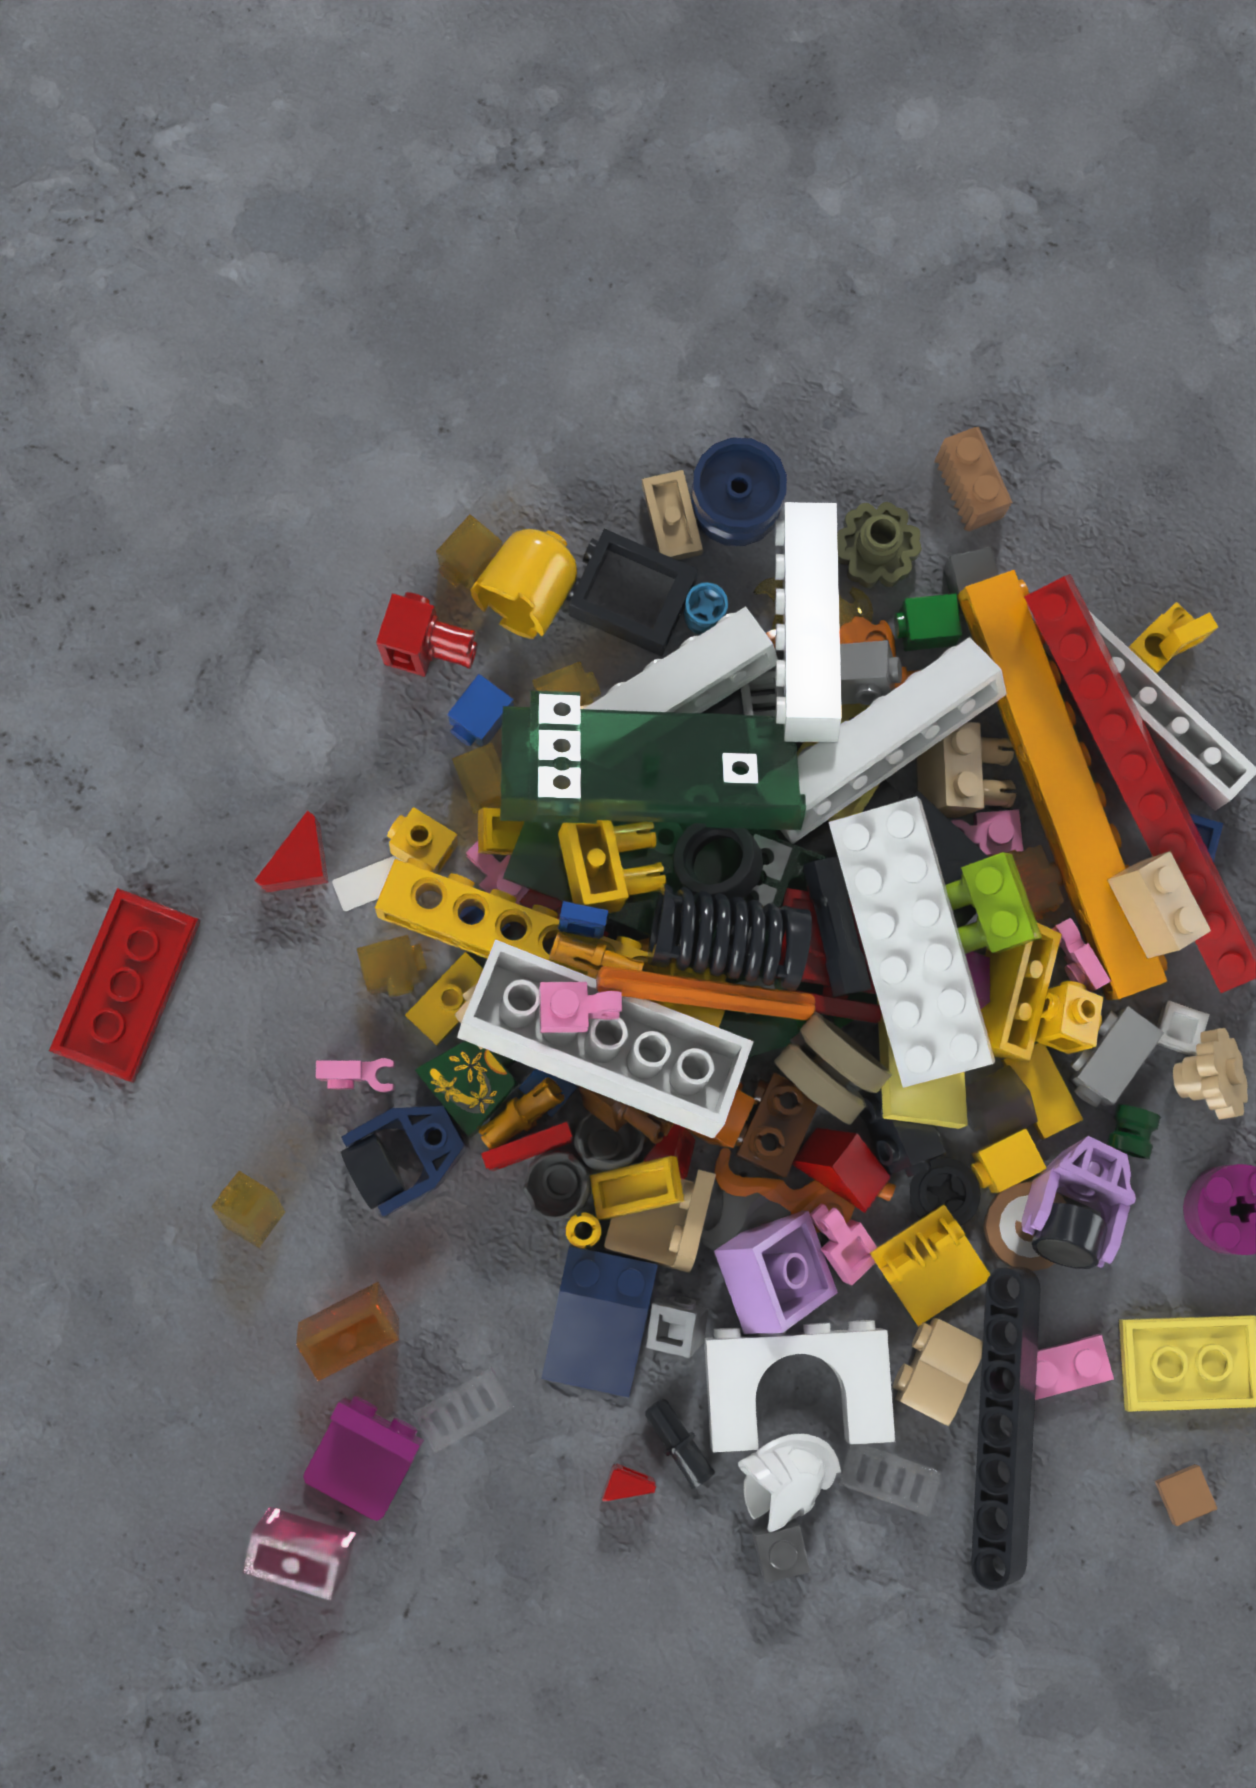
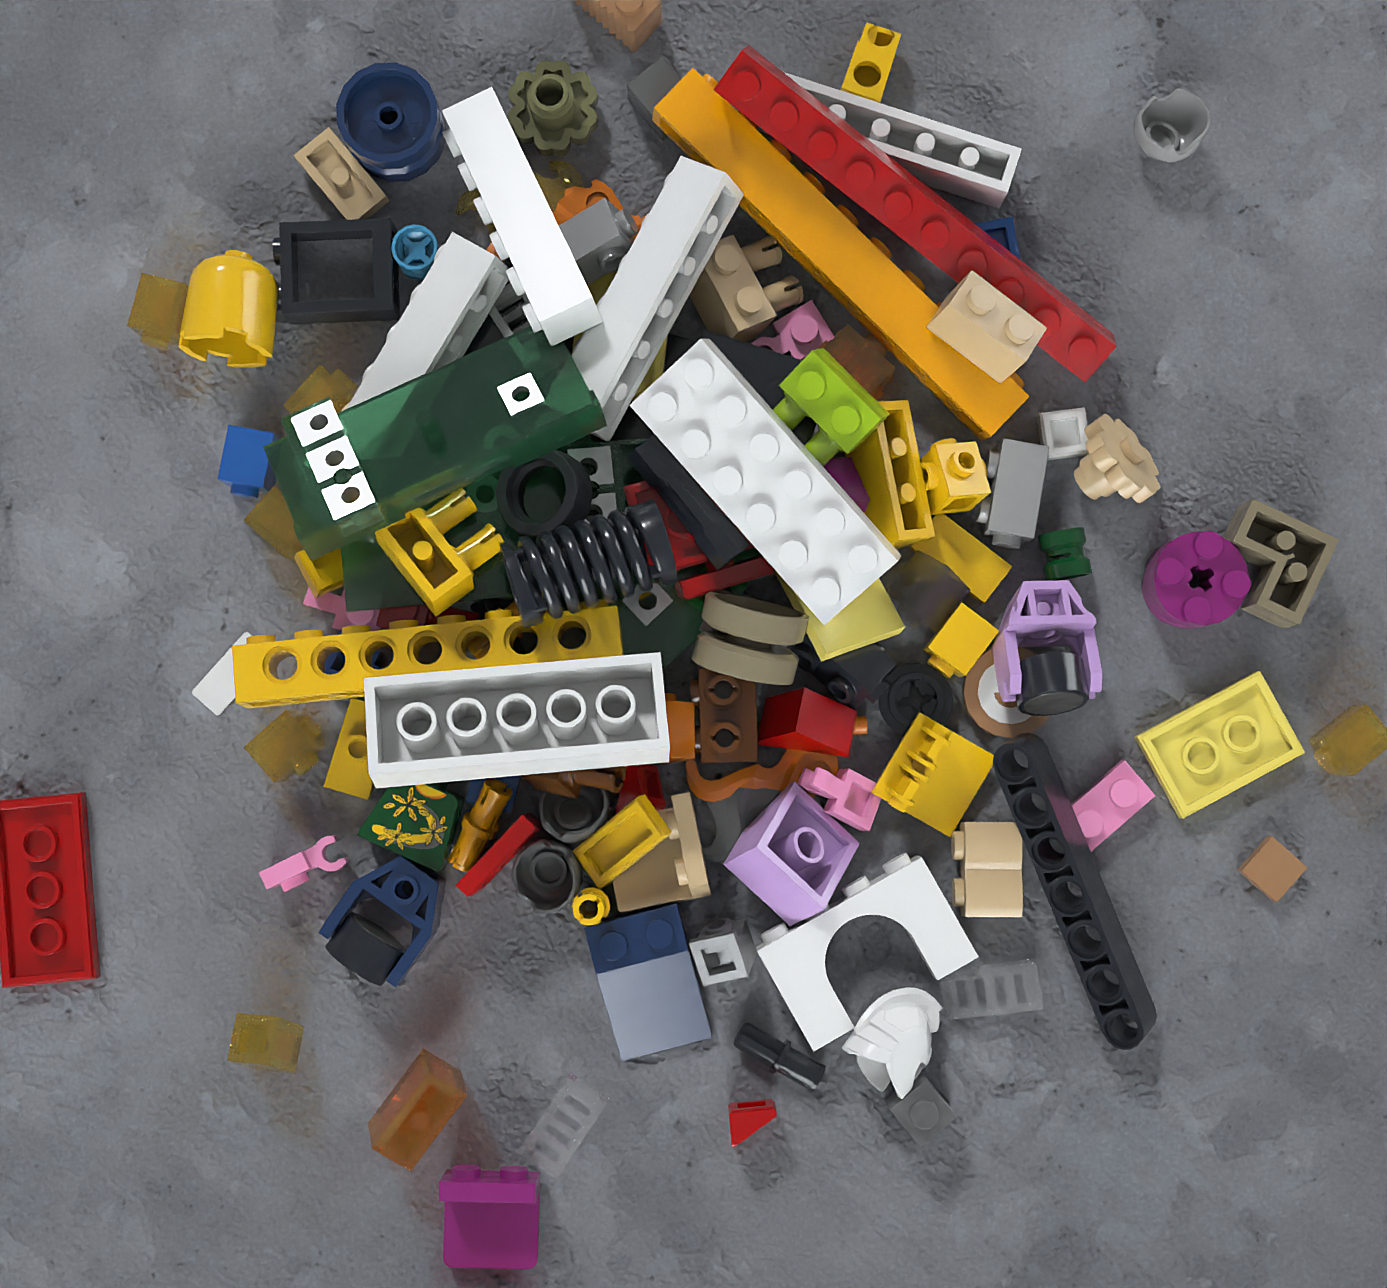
camera: 15 degrees left, 5 degrees up
(298, 860) = (146, 688): red slope -> none
(415, 636) = (149, 421): red brick -> none
(422, 839) = (256, 612): yellow brick -> none
(568, 1006) = (465, 709): bright pink plate -> none
(582, 920) = (440, 616): blue tile -> none
(588, 956) = (472, 648): light orange pin -> none
(705, 993) = (591, 629): orange axle -> none
(928, 622) = (638, 160): green brick -> none
(1082, 962) = (941, 417): bright pink plate -> none
(1187, 633) = (890, 49): yellow plate -> none

